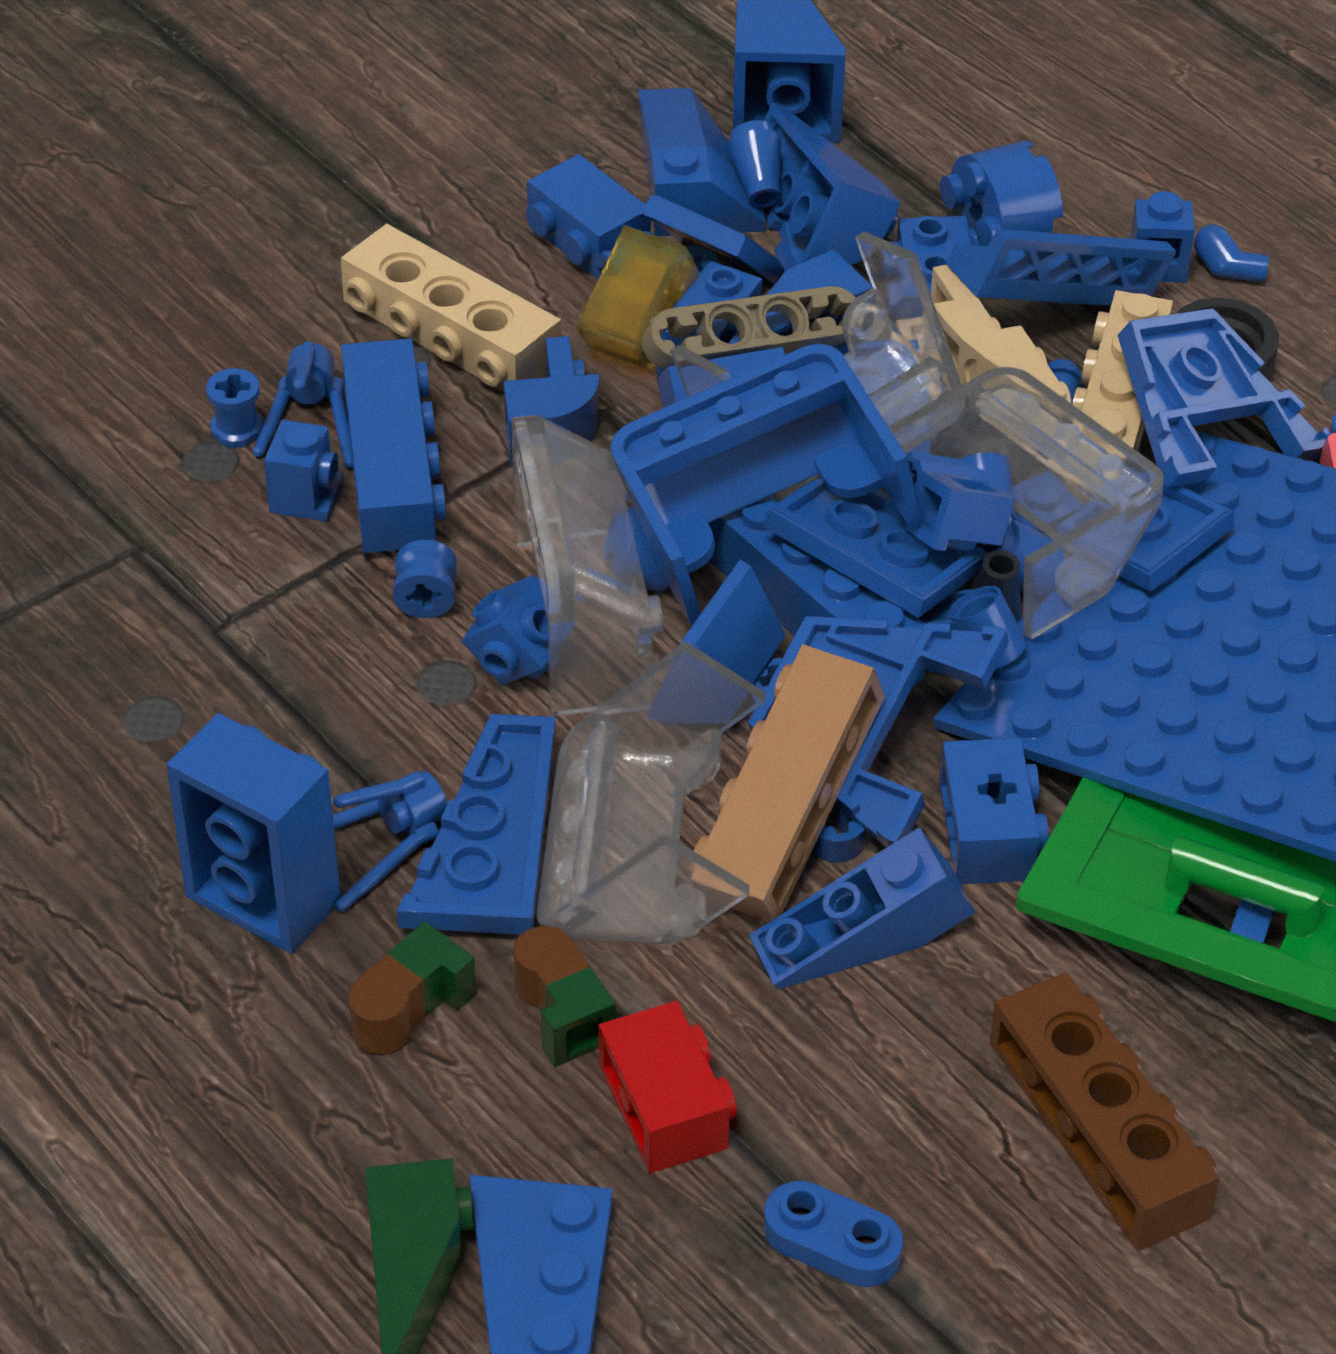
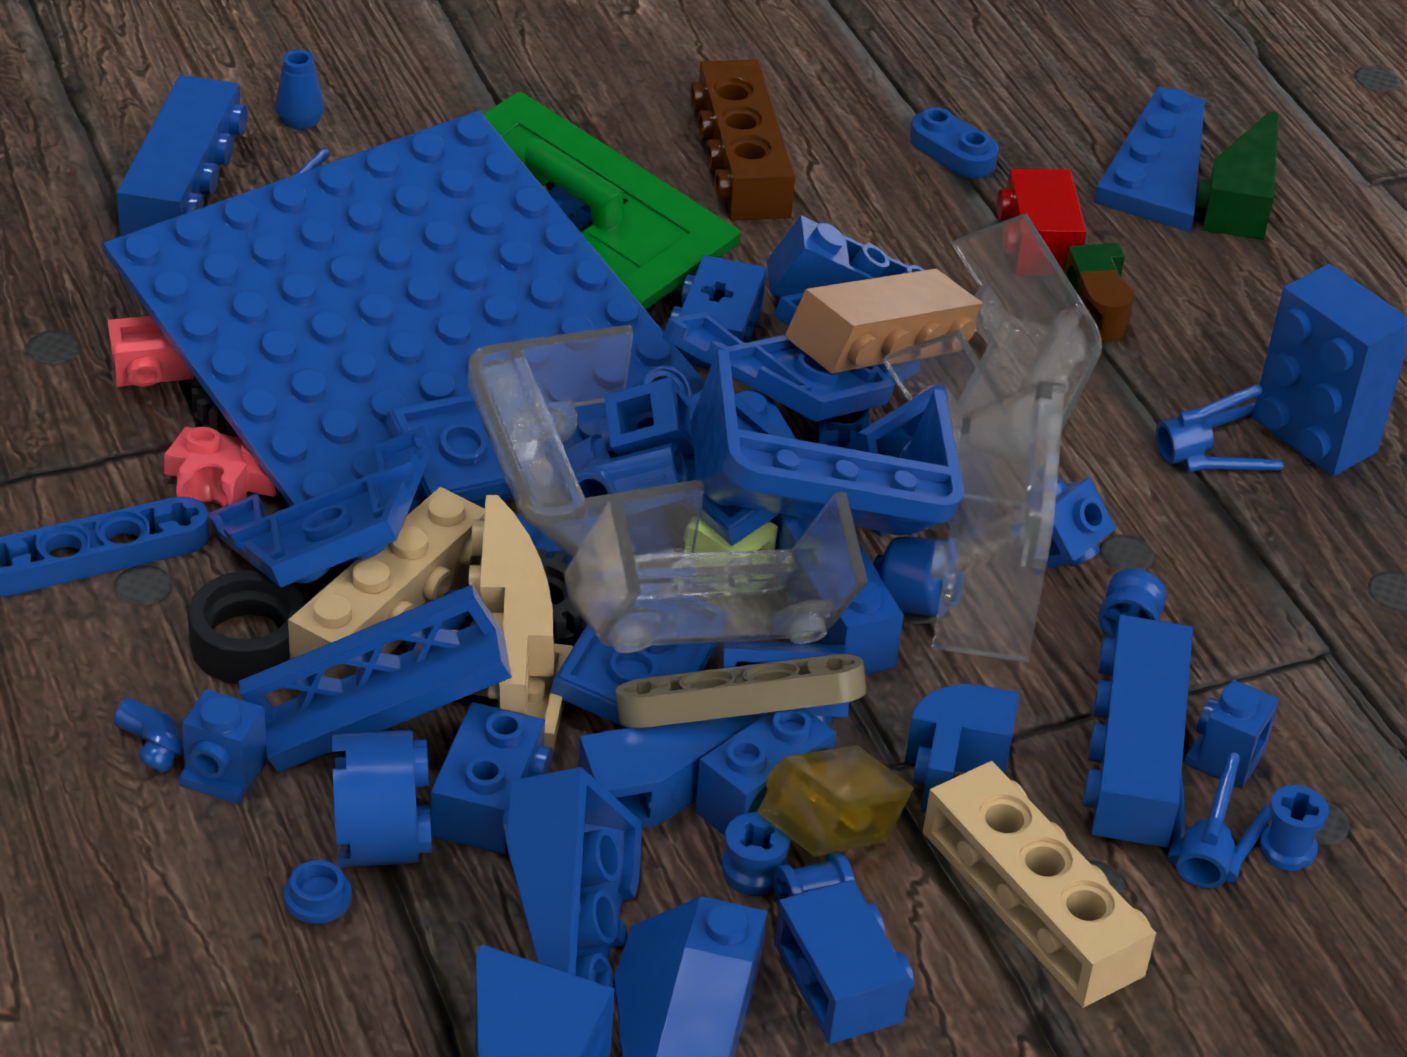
camera: 165 degrees left, 5 degrees down
(408, 987) = (1212, 322): leg -> none
(490, 836) = (1123, 401): blue wing -> none
(721, 240) = (723, 841): blue tile -> none
(757, 159) = (622, 946): blue cone -> none

